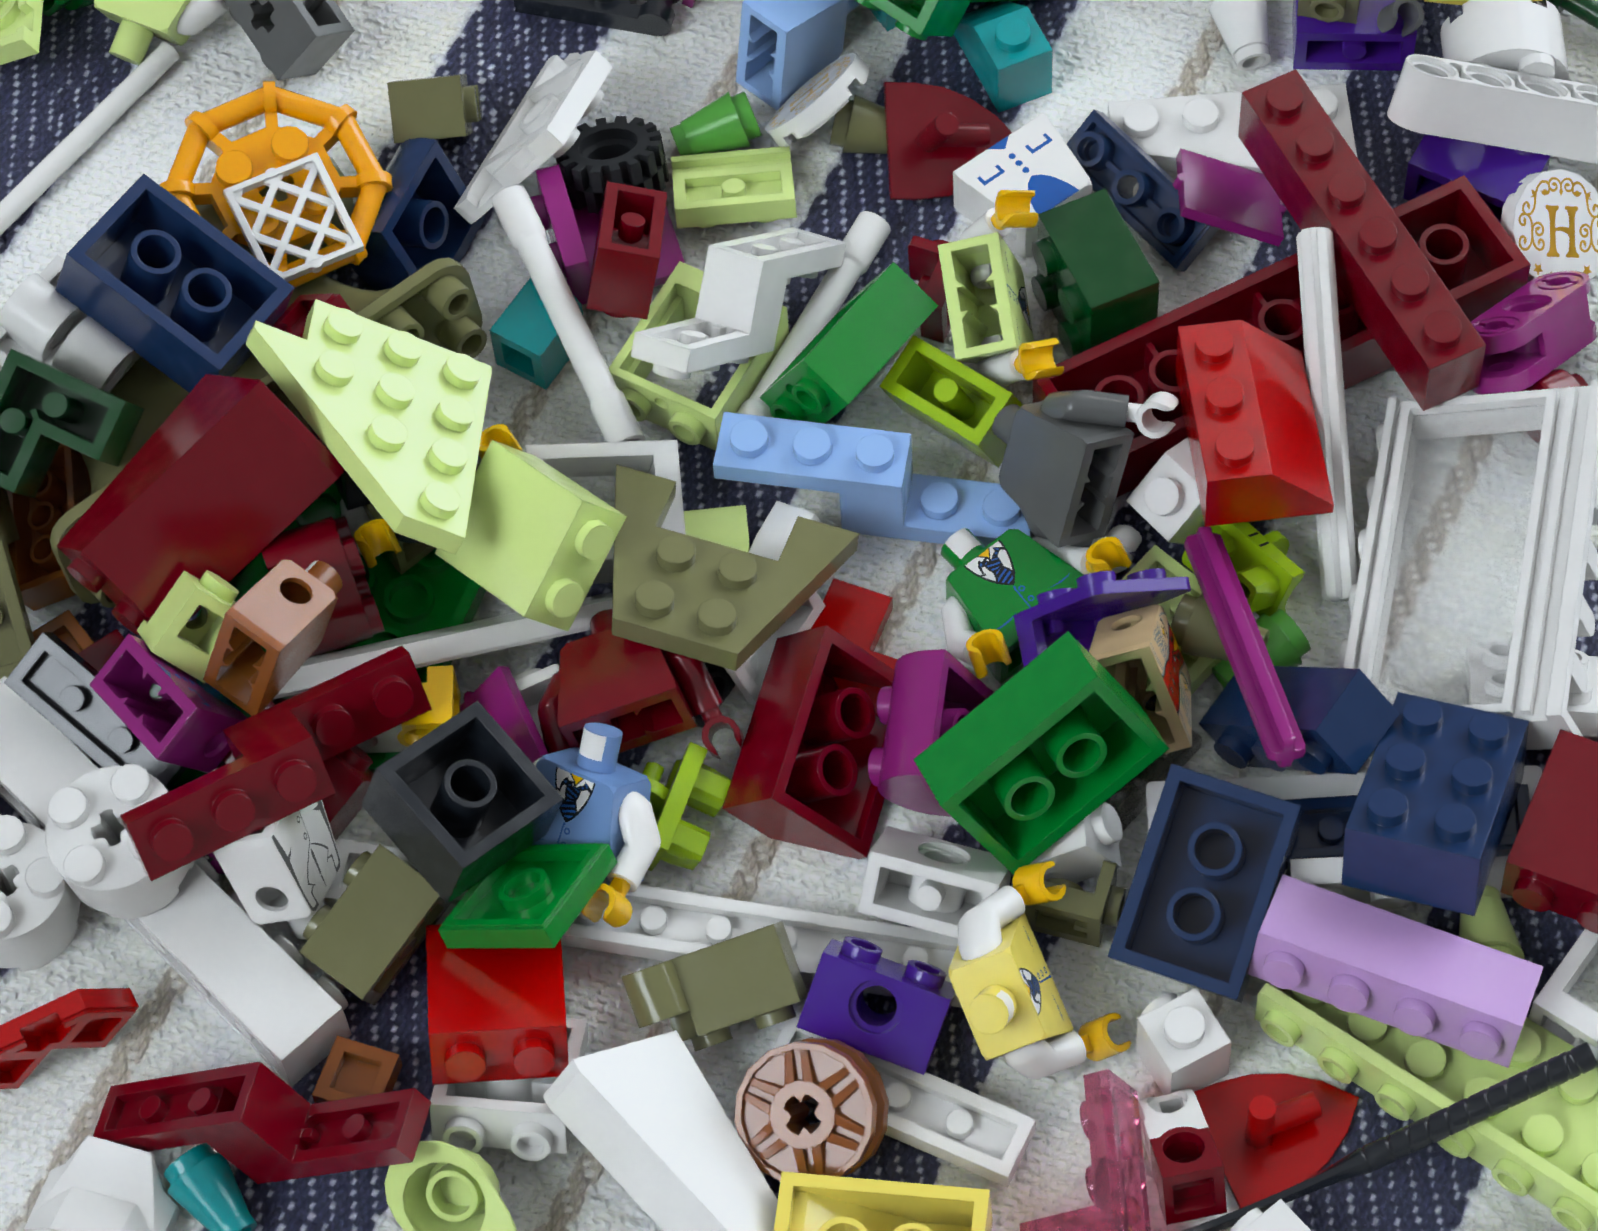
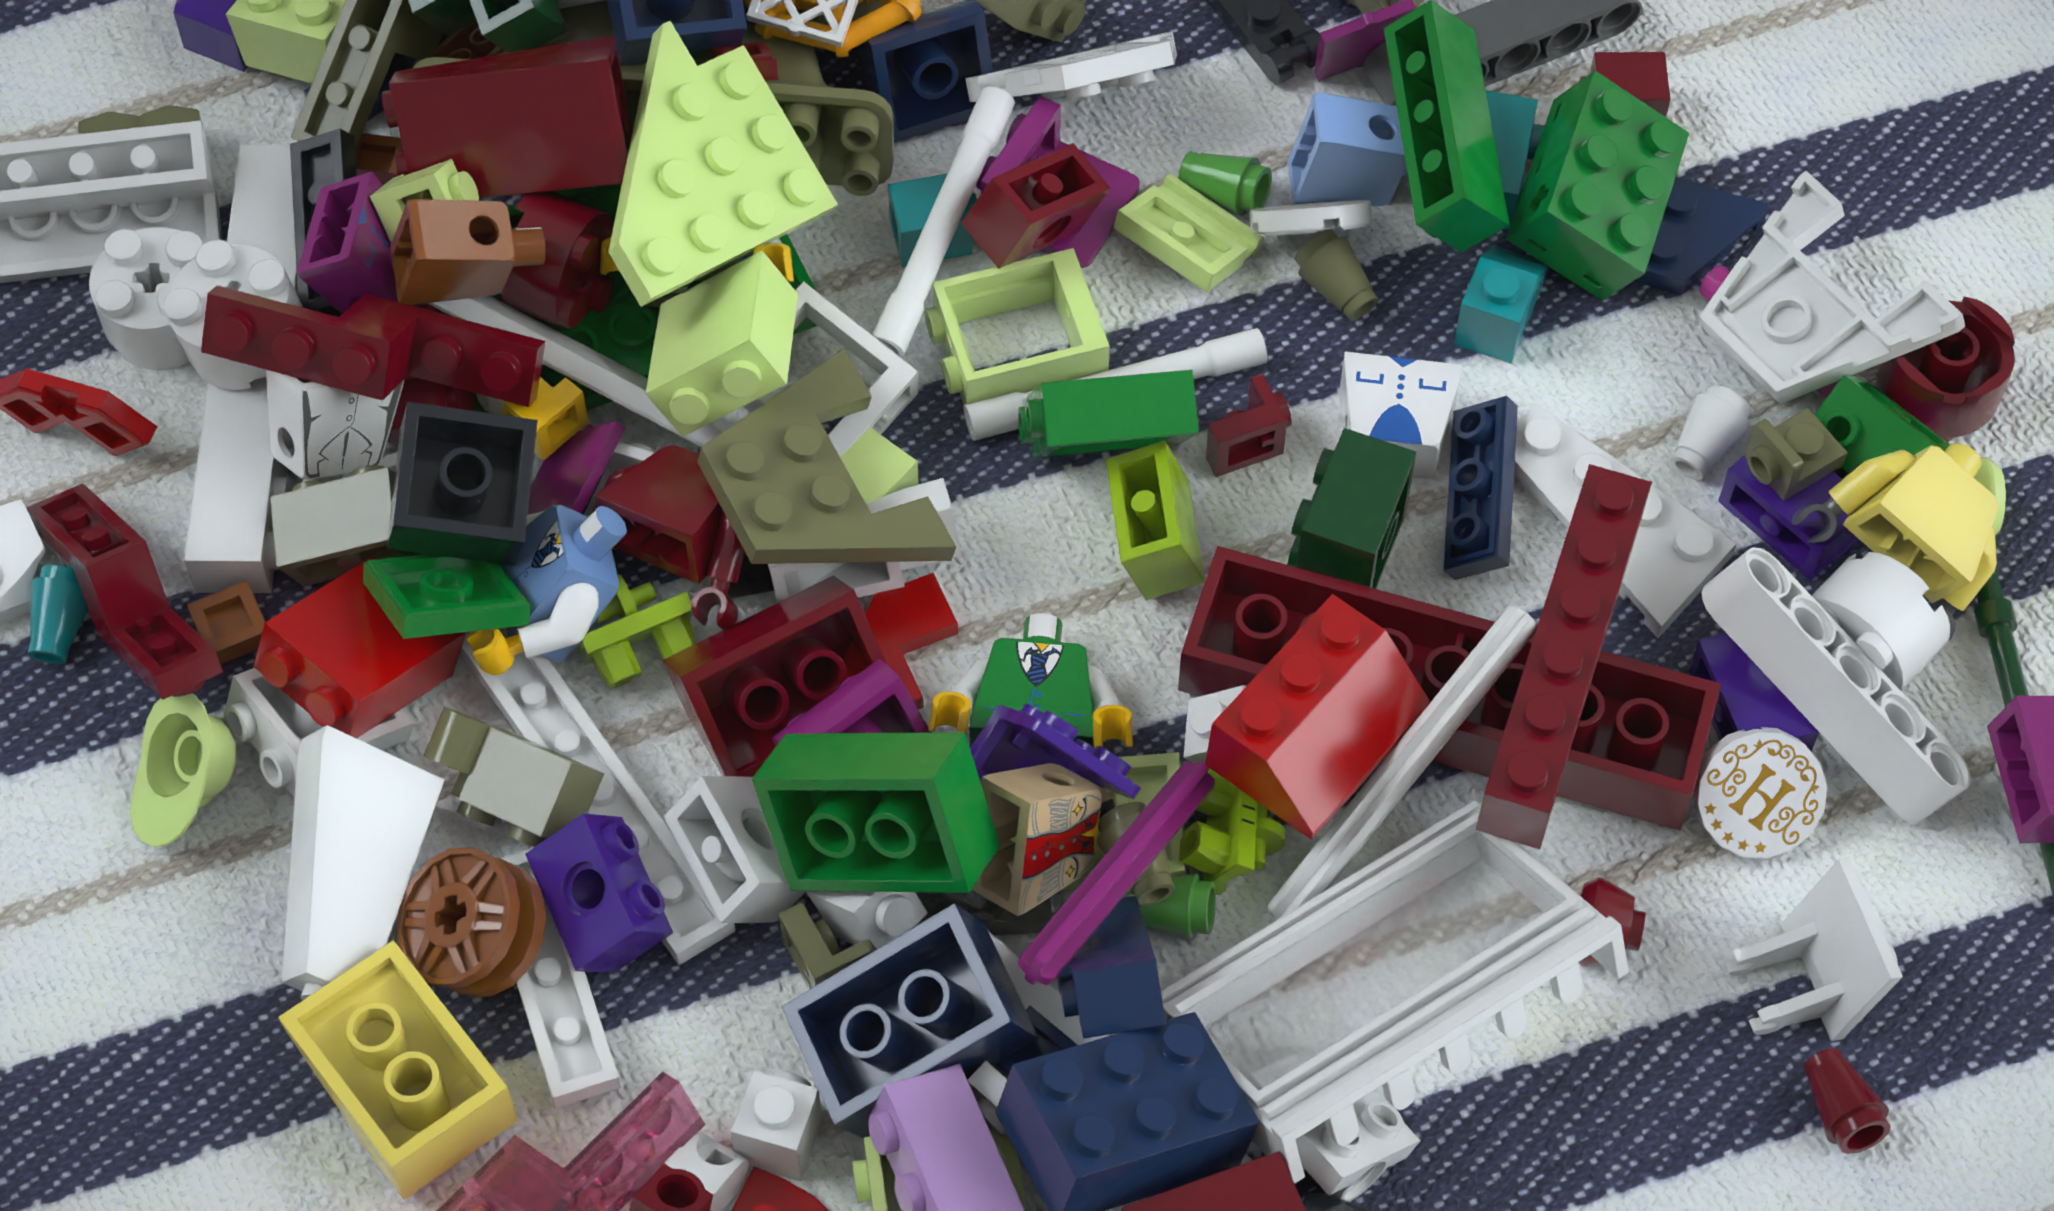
camera: 40 degrees right, 0 degrees up
(616, 154) = (1118, 138): black tyre -> none
(737, 302) = (1058, 305): white bracket -> none
(870, 474) = (1029, 526): light blue bracket -> none
(931, 136) = (1372, 313): dark red shield -> none
(990, 298) = (1248, 463): yellowish green torso -> none
(1010, 989) = (689, 966): torso -> none
(1070, 460) = (1157, 633): dark grey torso -> none
(1228, 197) = (1526, 542): magenta piece -> none
(1534, 331) = (1636, 848): magenta piece -> none

